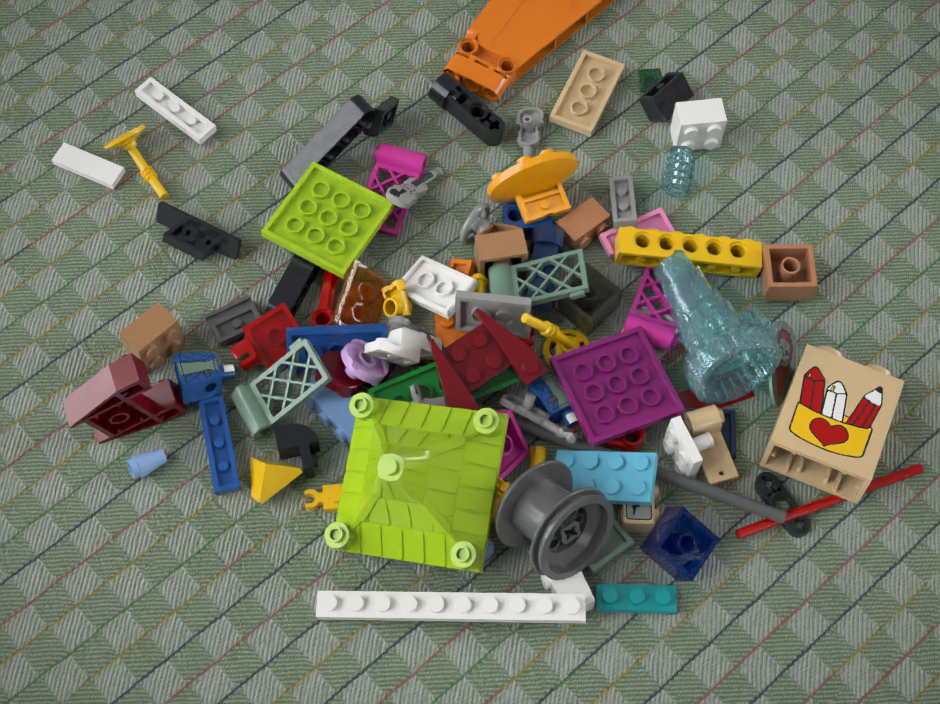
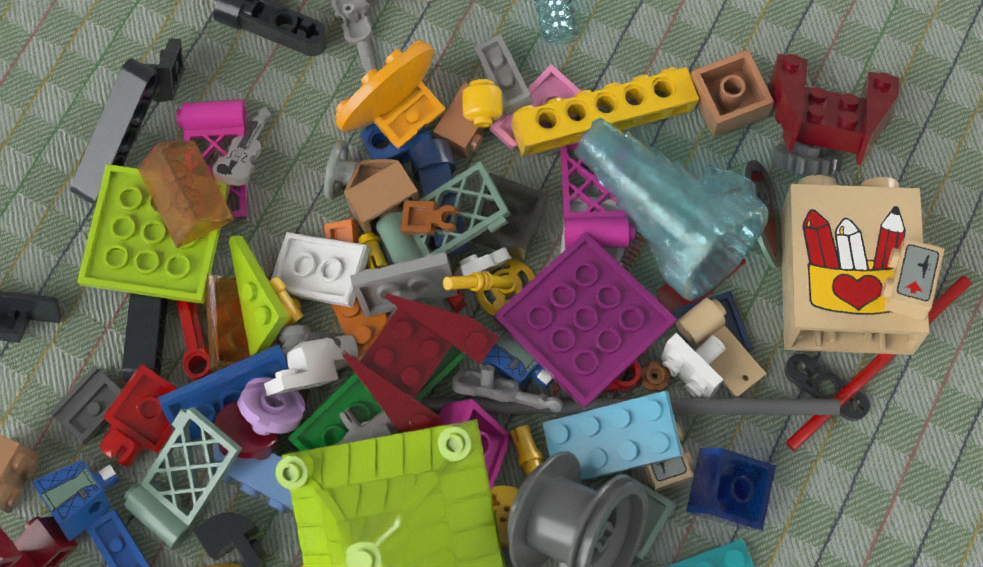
camera: 15 degrees left, 10 degrees up
(361, 196) = (184, 191): none -> clear orange slope
(383, 292) = (259, 303): none -> lime wing
(526, 271) = (424, 216): none -> dark orange plate
(565, 325) = (484, 263): none -> white plate
(599, 212) = (482, 102): none -> yellow head
(657, 443) = (658, 384): none -> dark orange plate
(828, 334) = (807, 159): none -> dark grey gear
(857, 313) = (829, 117): none -> dark red wedge
(872, 437) = (912, 279): none -> brick

